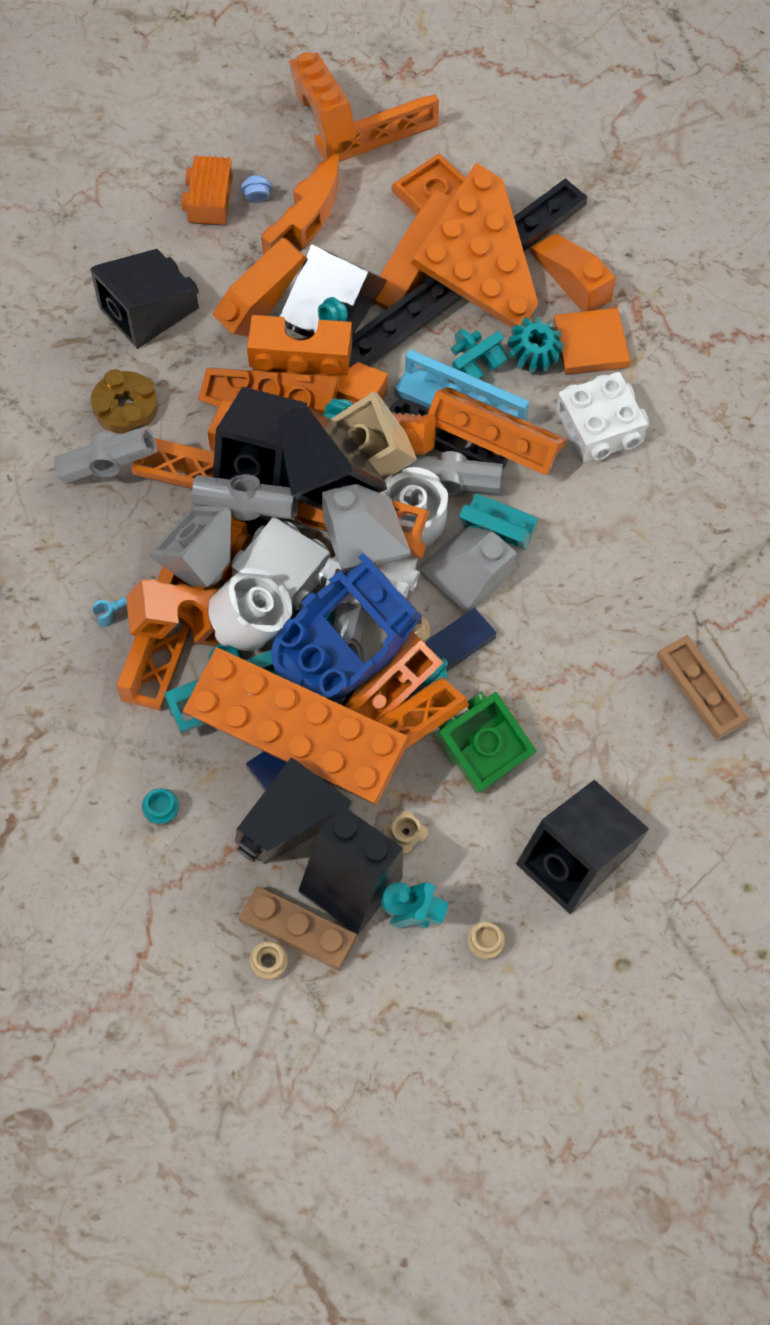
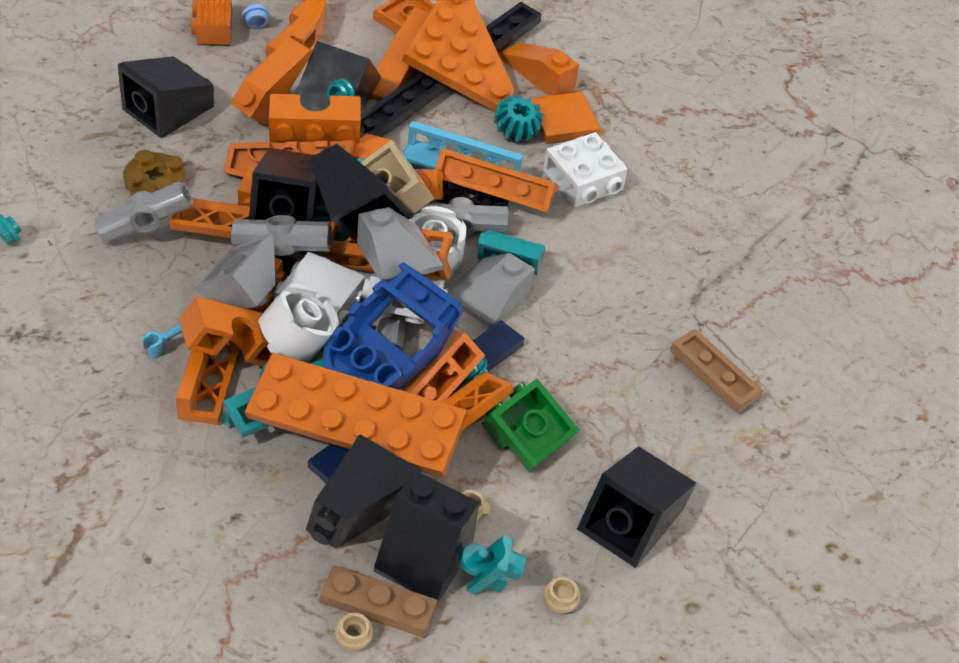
camera: 15 degrees left, 15 degrees down
(160, 806) = (228, 503): teal plate -> none
(488, 350) = (465, 124): teal hips -> none

